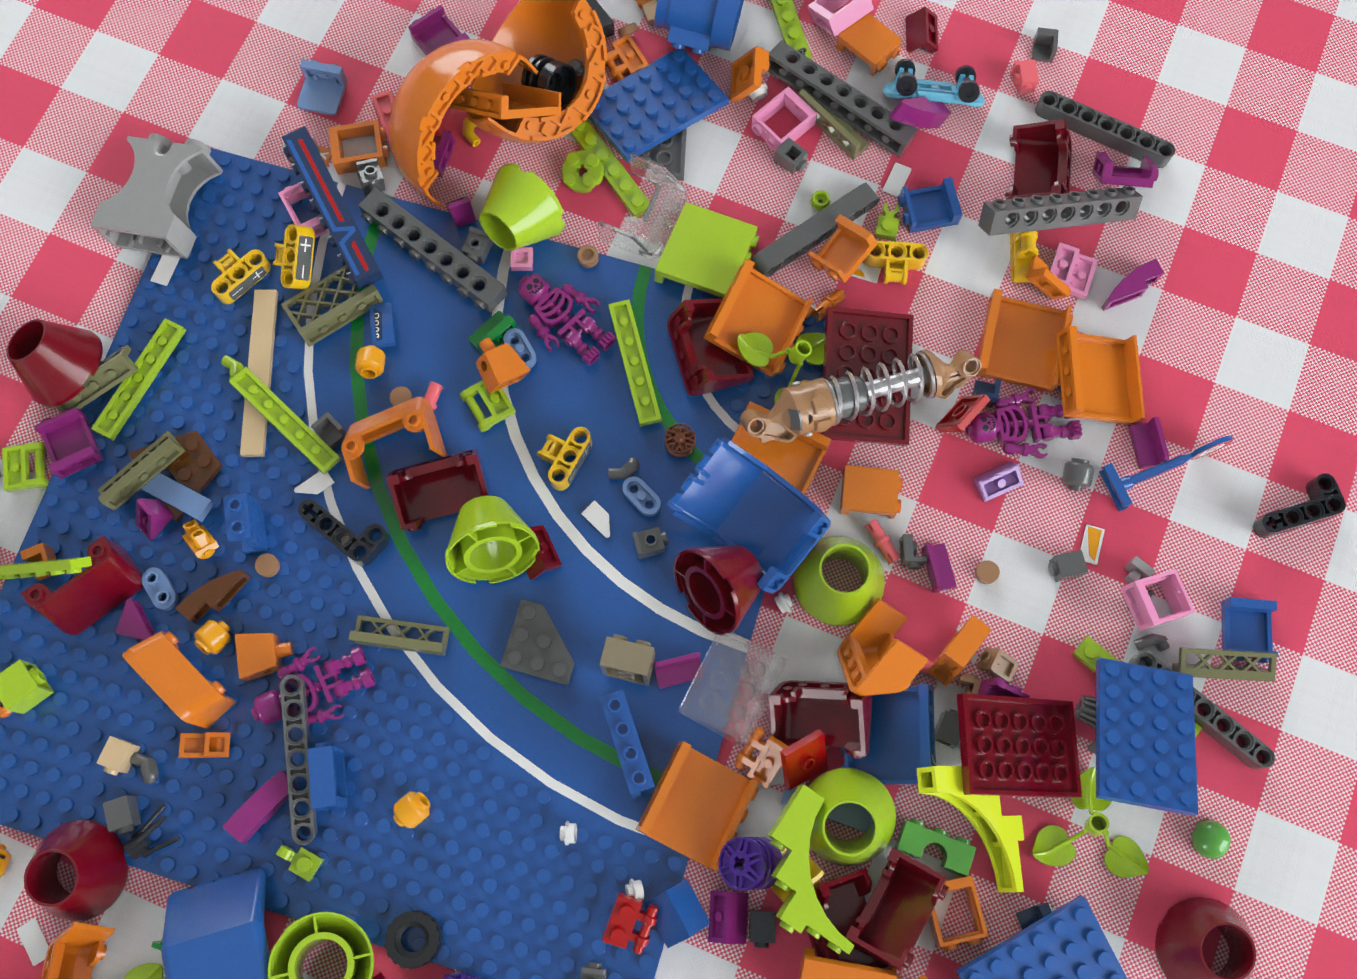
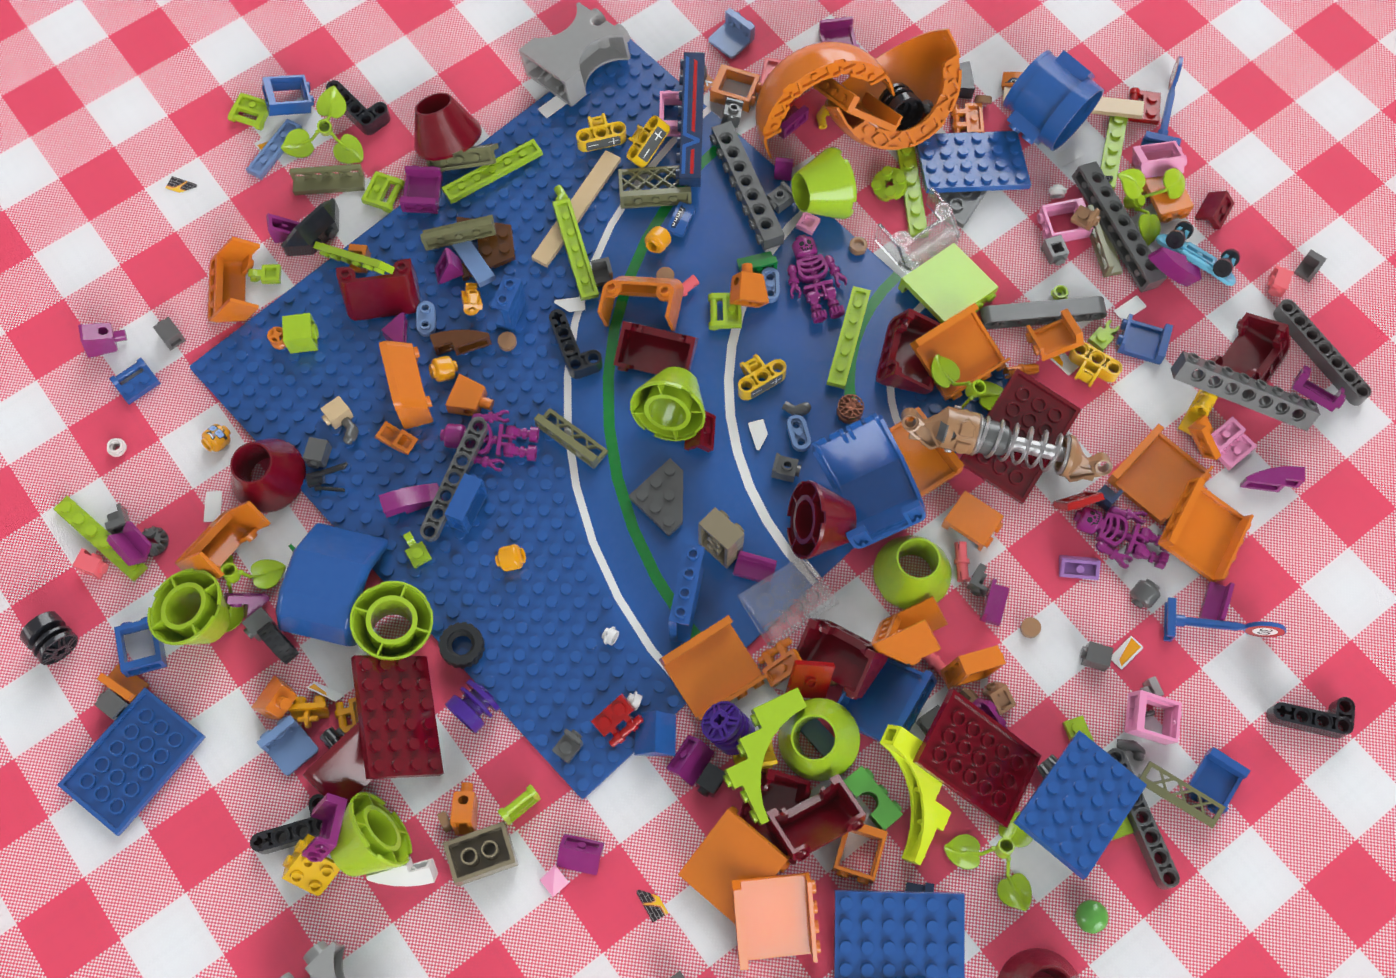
camera: 30 degrees right, 5 degrees down
(747, 73) = (1056, 172): orange plate -> none
(784, 602) = (861, 564): white plate -> none
(805, 106) = (1086, 218): none -> medium nougat bracket
(834, 46) = (1133, 182): none -> lime plant

